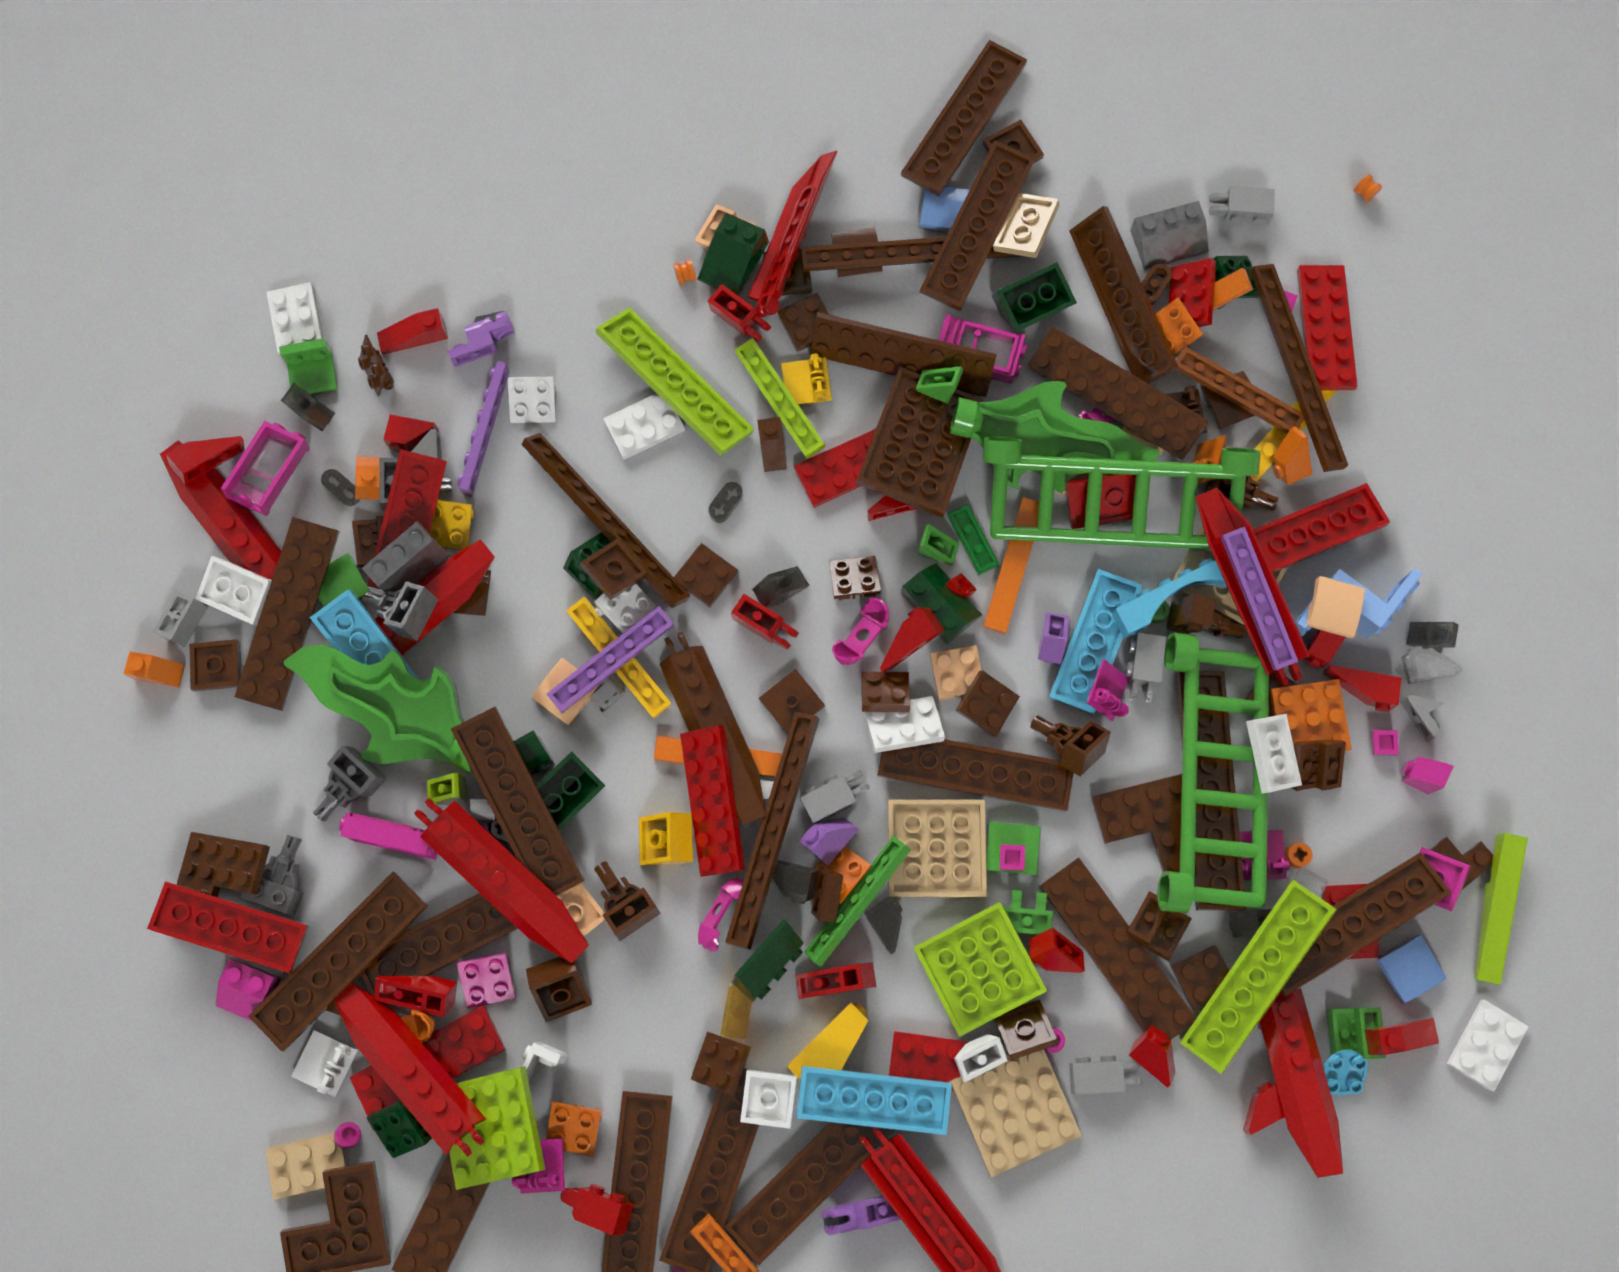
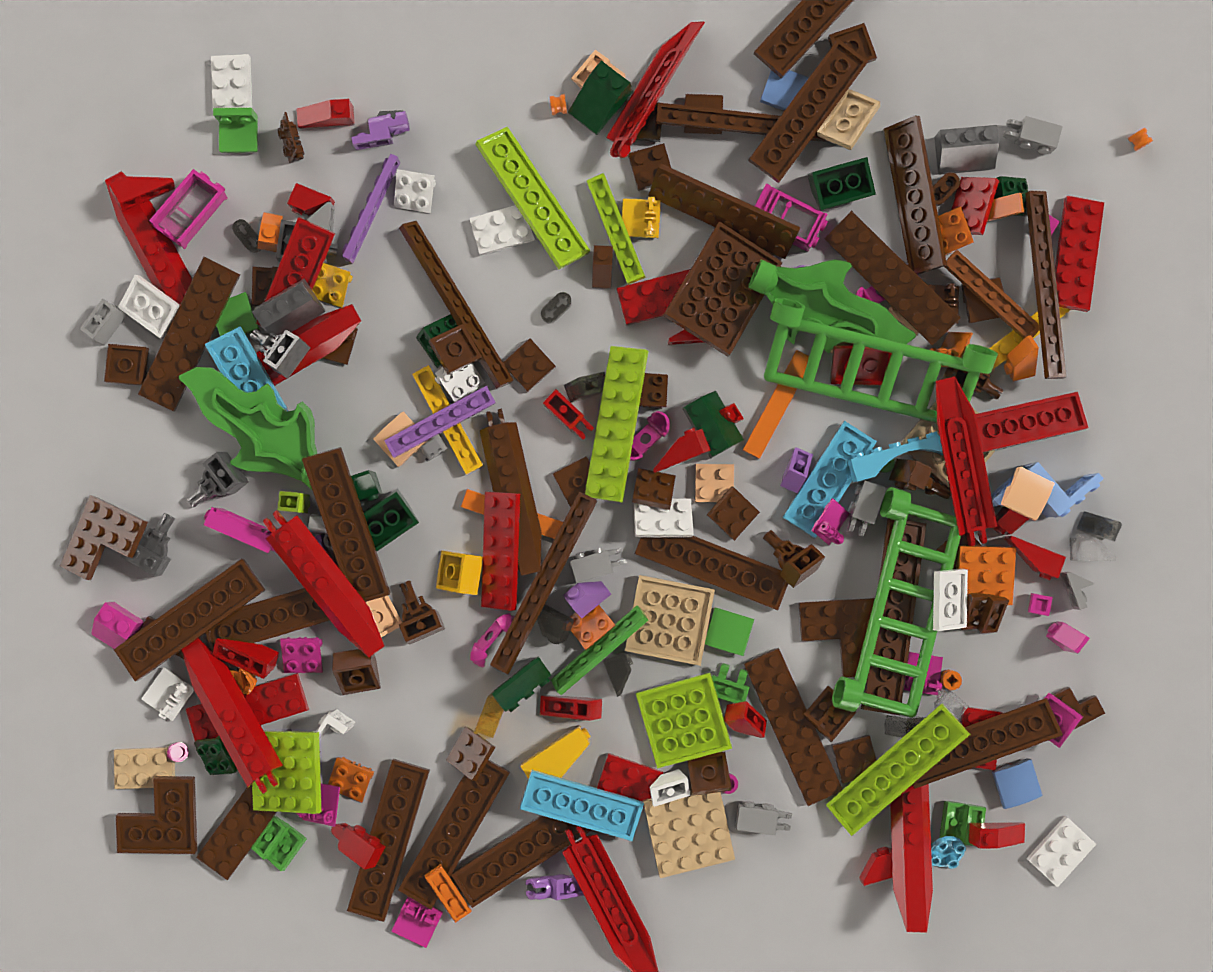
camera: 10 degrees right, 10 degrees up
(154, 669) = (77, 359): orange slope -> none
(227, 927) = (106, 579): red plate -> none
(308, 407) = (230, 163): clear smoke slope -> none
(495, 1230) = (279, 843): none -> bright green slope
(736, 312) = (594, 149): red hinge -> none
(768, 1099) = (501, 788): white plate -> none
(824, 622) = (616, 423): none -> lime plate
(826, 895) = (576, 641): reddish brown slope -> none
(938, 546) = (720, 377): bright green slope -> none
(939, 383) = (748, 242): bright green slope -> none
(973, 539) = (749, 376): green tile -> none
(1012, 857) = (726, 640): dark pink plate -> none
(1155, 1054) = (804, 811): red slope -> none
(1259, 598) = (967, 474): medium lavender plate -> none
(1499, 906) = (1097, 749): lime slope -> none

